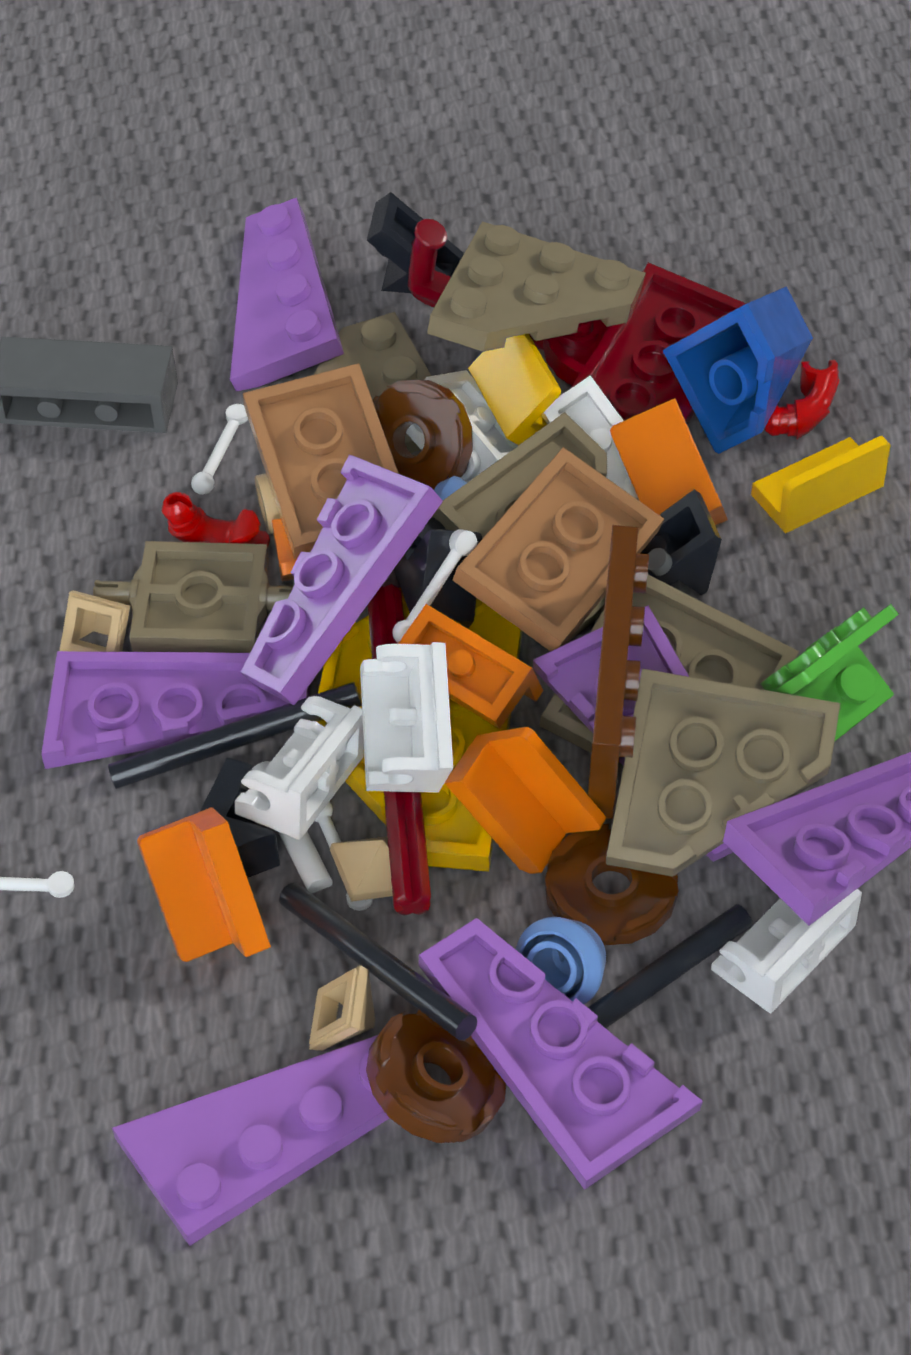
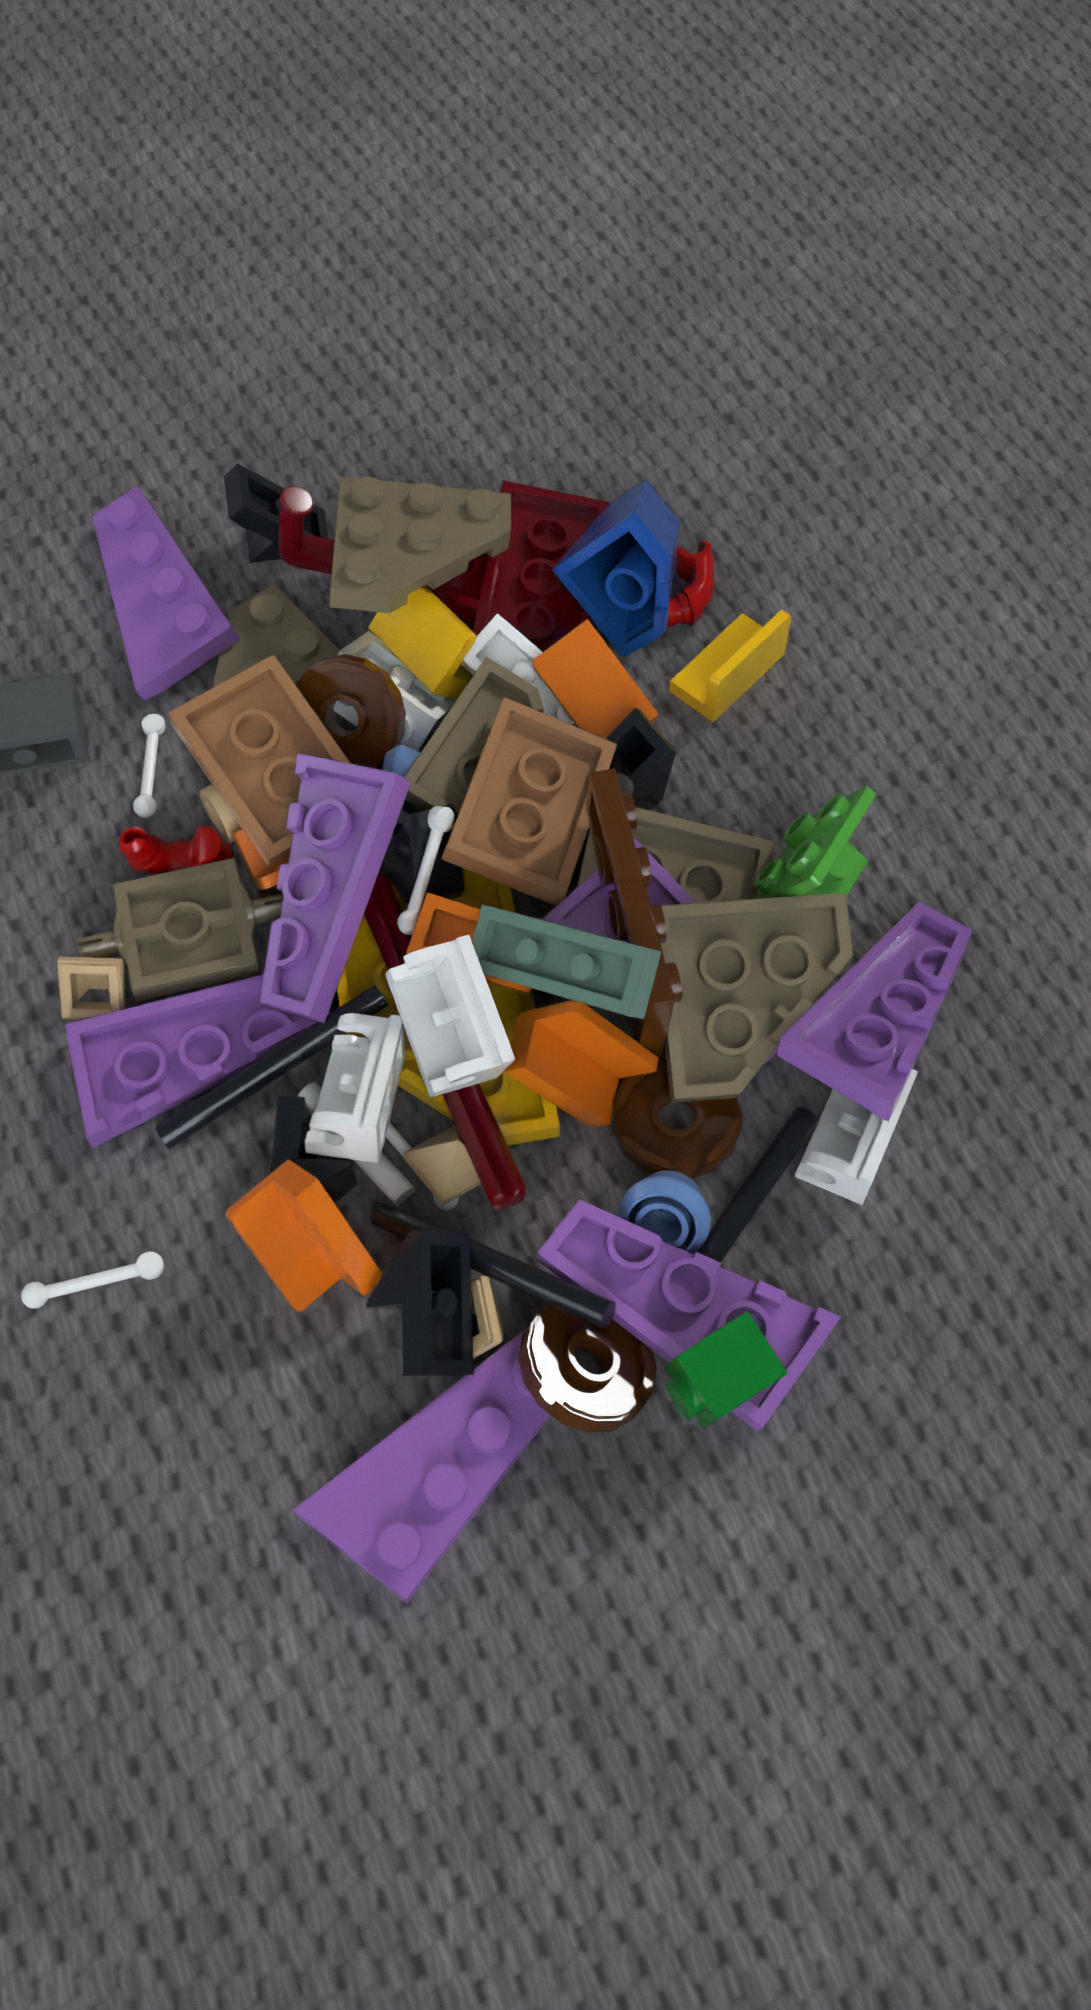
camera: 20 degrees left, 10 degrees up
(306, 974) = (433, 1289): none -> black slope
(528, 687) = (565, 961): none -> sand green plate
(558, 1107) = (722, 1371): none -> green brick

